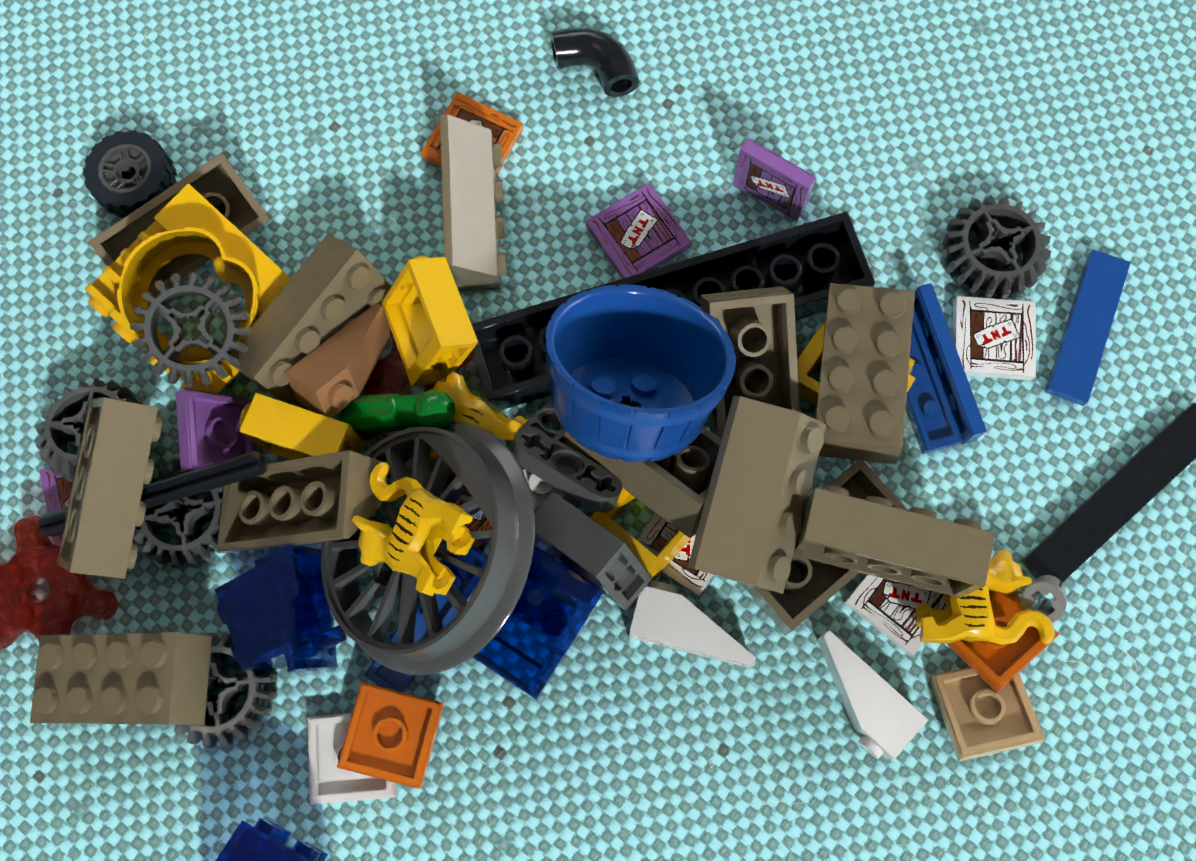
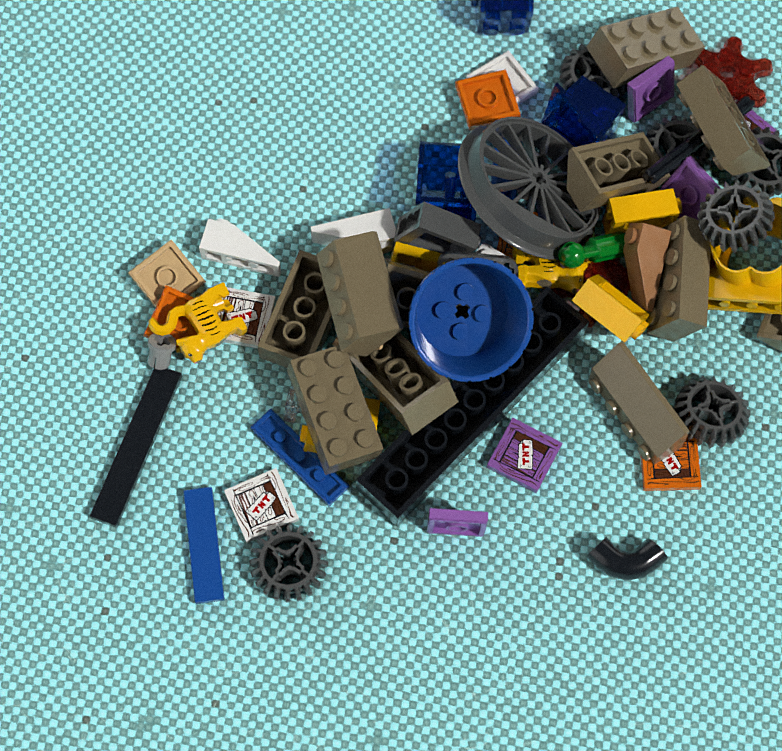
camera: 145 degrees right, 5 degrees down
(158, 613) = (650, 89): none -> medium lavender tile
(388, 132) = (717, 403): none -> dark grey gear
(416, 534) = (535, 169): yellow animal -> none
(894, 542) = (270, 307): dark tan brick -> none
(948, 364) = (284, 467): blue tile -> none

